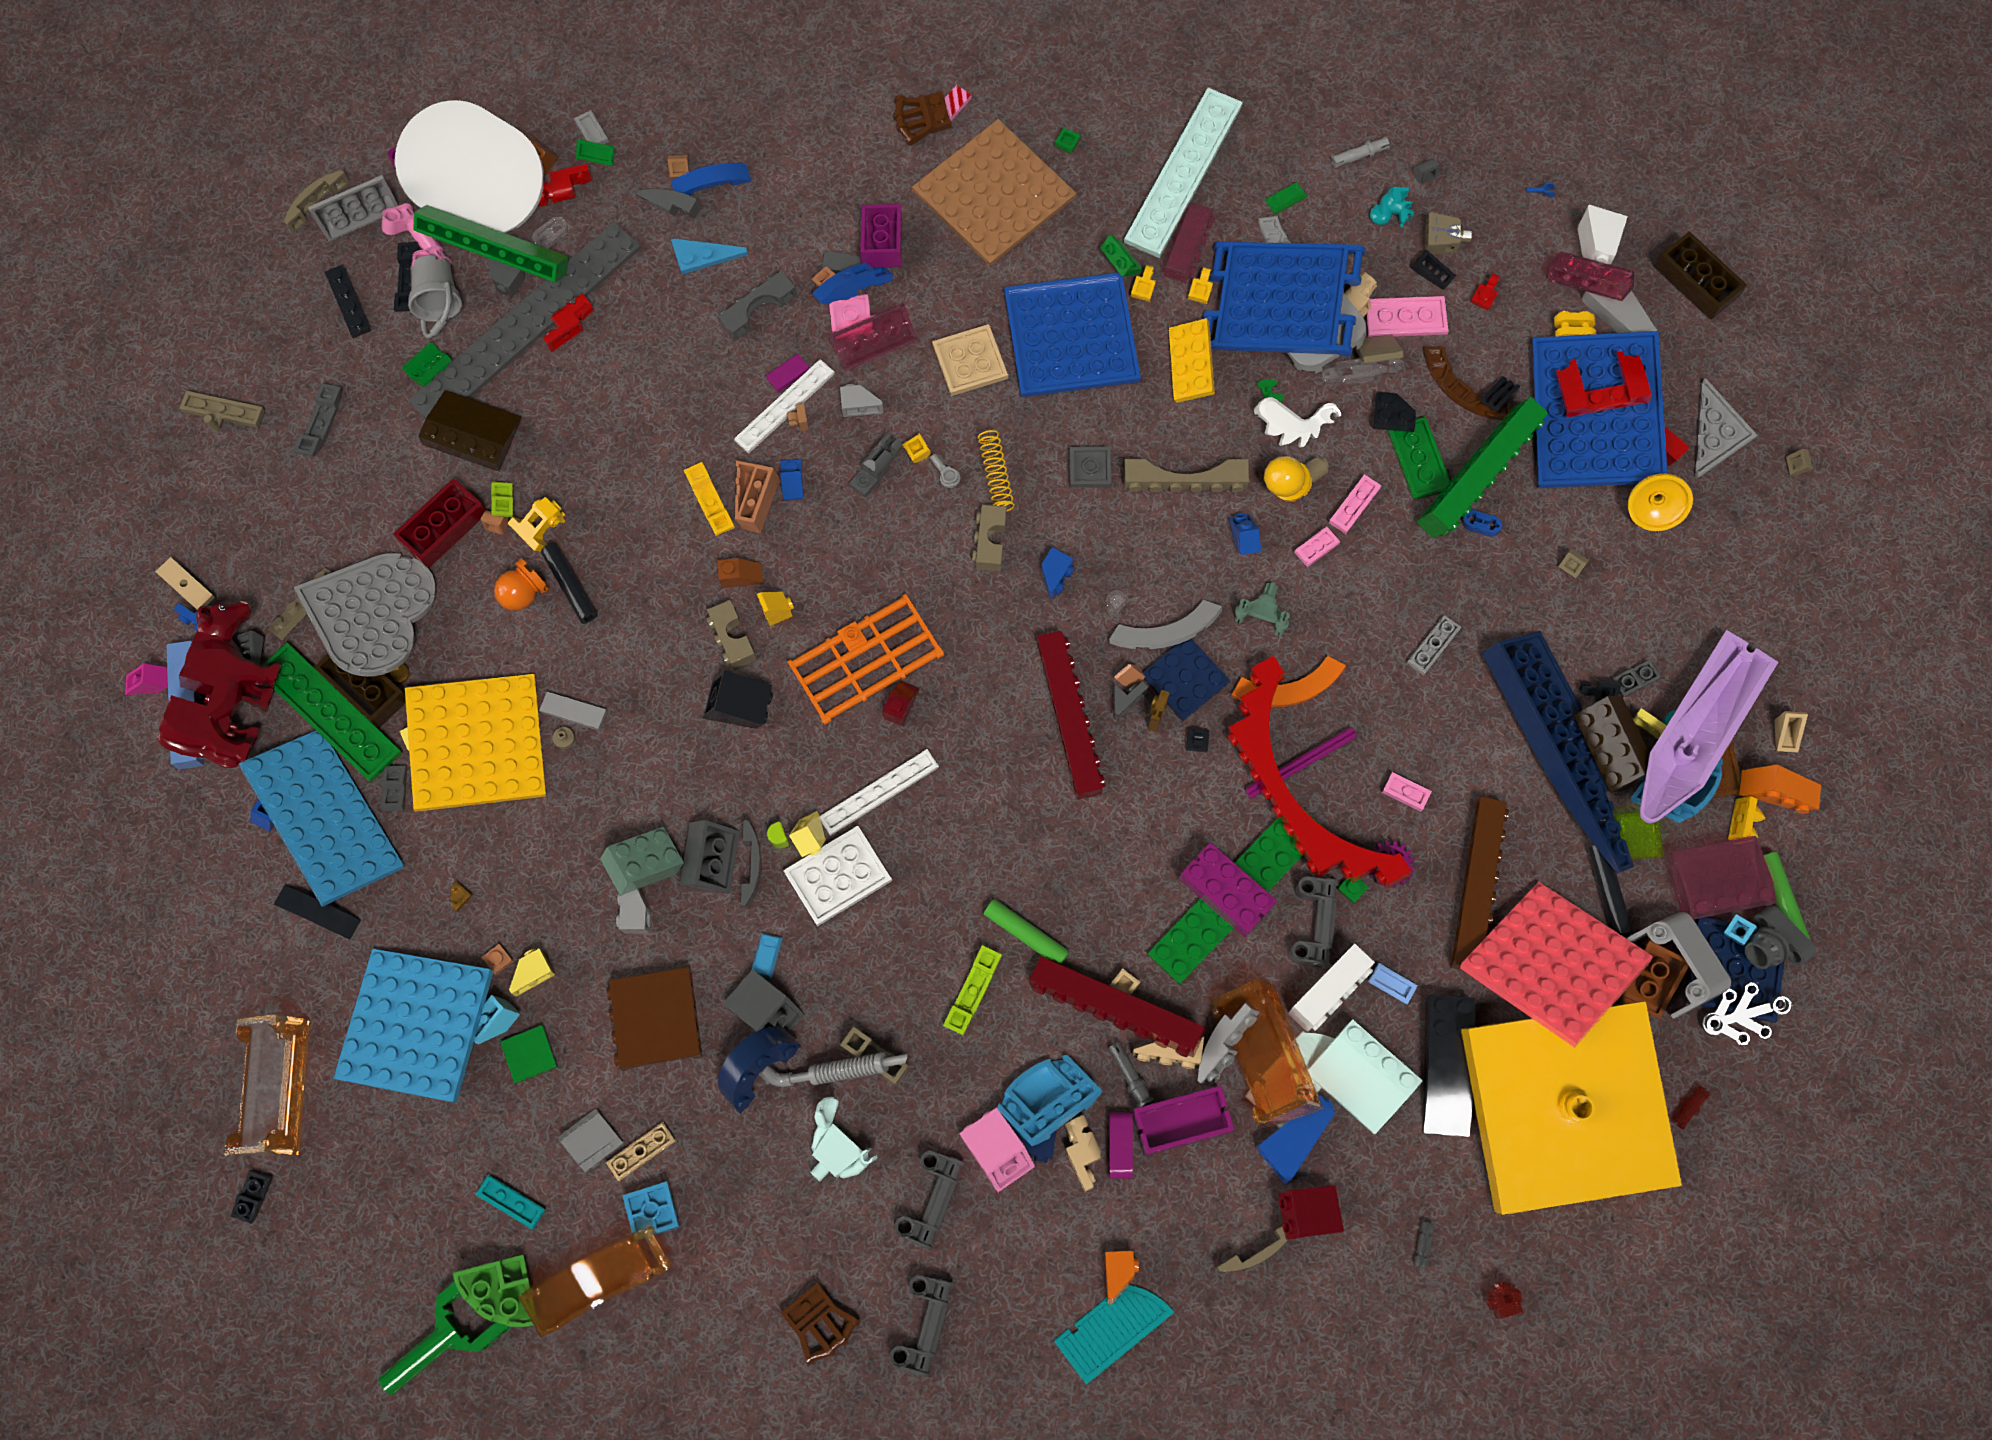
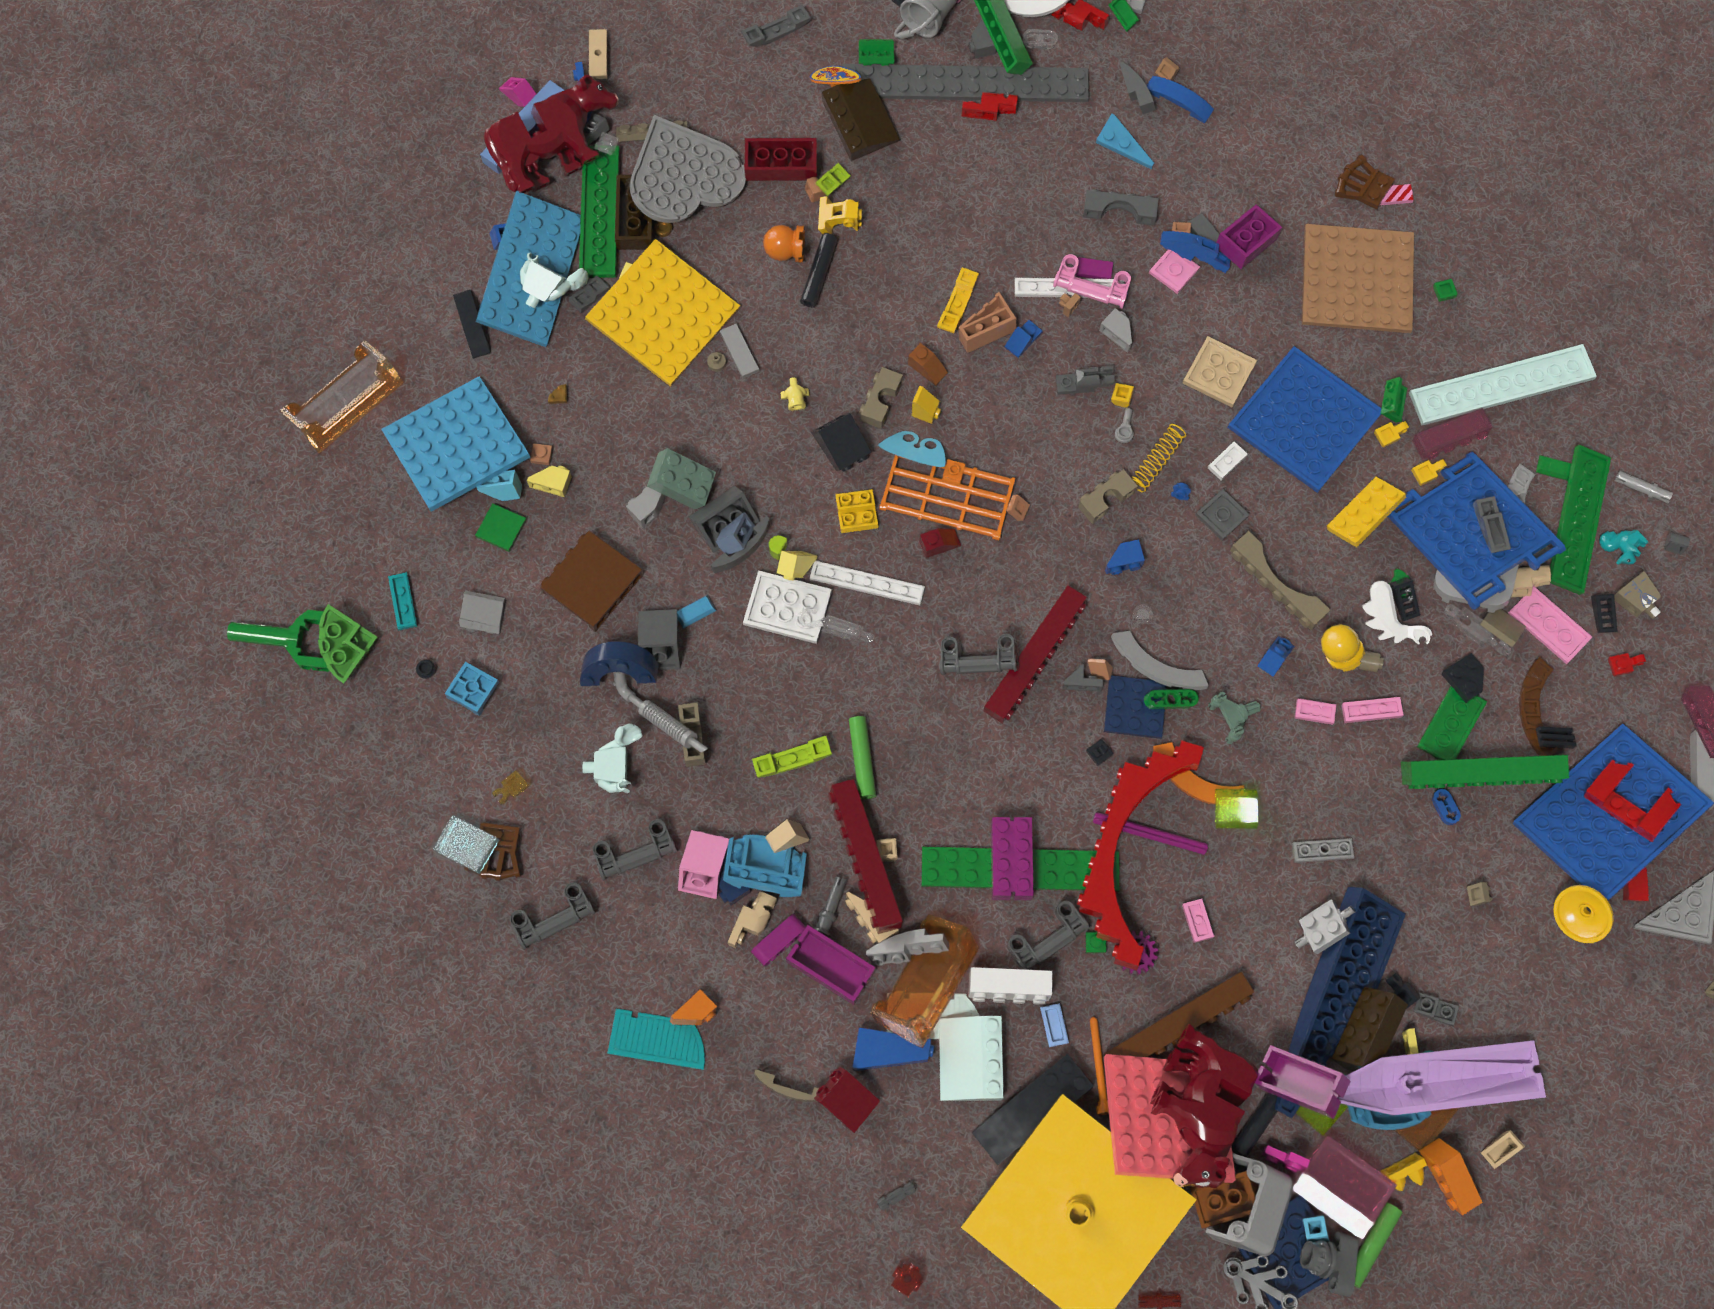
camera: 45 degrees right, 0 degrees up
(253, 1194) = (267, 452): black slope -> none
(276, 649) = (607, 143): none -> clear bracket
(352, 814) = (546, 284): none -> light aqua torso
(414, 414) = (835, 75): none -> shield
(593, 1237) = (425, 669): none -> black plate
(593, 1280) = (398, 691): clear orange windscreen -> none
(652, 1143) = (514, 650): tan tile -> none
(659, 700) = (795, 395): none -> light yellow piece
(734, 860) = (735, 535): none -> sand blue slope
(773, 1253) = (513, 786): none -> clear yellow plate
(788, 1344) = (466, 844): none -> clear light blue tile
(809, 744) = (856, 511): none -> yellow slope
(814, 647) = (899, 447): none -> medium azure piece
(828, 376) = (1115, 295): none -> bright pink piece
(873, 337) = (1171, 297): clear pink brick -> none
(894, 851) = (836, 627): none -> clear piece
(932, 614) = (1017, 507): none -> nougat plate
(1015, 785) = (954, 662): none -> dark grey piece
(1038, 1057) = (786, 836): none -> tan slope
(1041, 479) = (1181, 491): none -> blue plate
(1049, 422) = (1227, 461): none -> white plate
(1157, 710) = (1096, 705): pearl gold plate -> none
(1206, 652) = (1164, 704): none -> green beam
(1280, 387) = (1408, 583): none -> black slope
(1295, 280) = (1491, 524): none -> dark grey slope
(1343, 216) = (1580, 519): none -> green plate
(1343, 677) = (1236, 808): none -> clear neon green slope
(1493, 1004) = (1102, 1108): none -> orange piece
(1501, 699) = (1324, 926): none -> light grey plate
(1574, 323) = (1664, 743): yellow brick -> none
(1576, 928) = (1209, 1106): none -> dark red animal
(1621, 830) = (1302, 1081): none -> piece
(1667, 900) = (1291, 1160): none -> dark pink plate

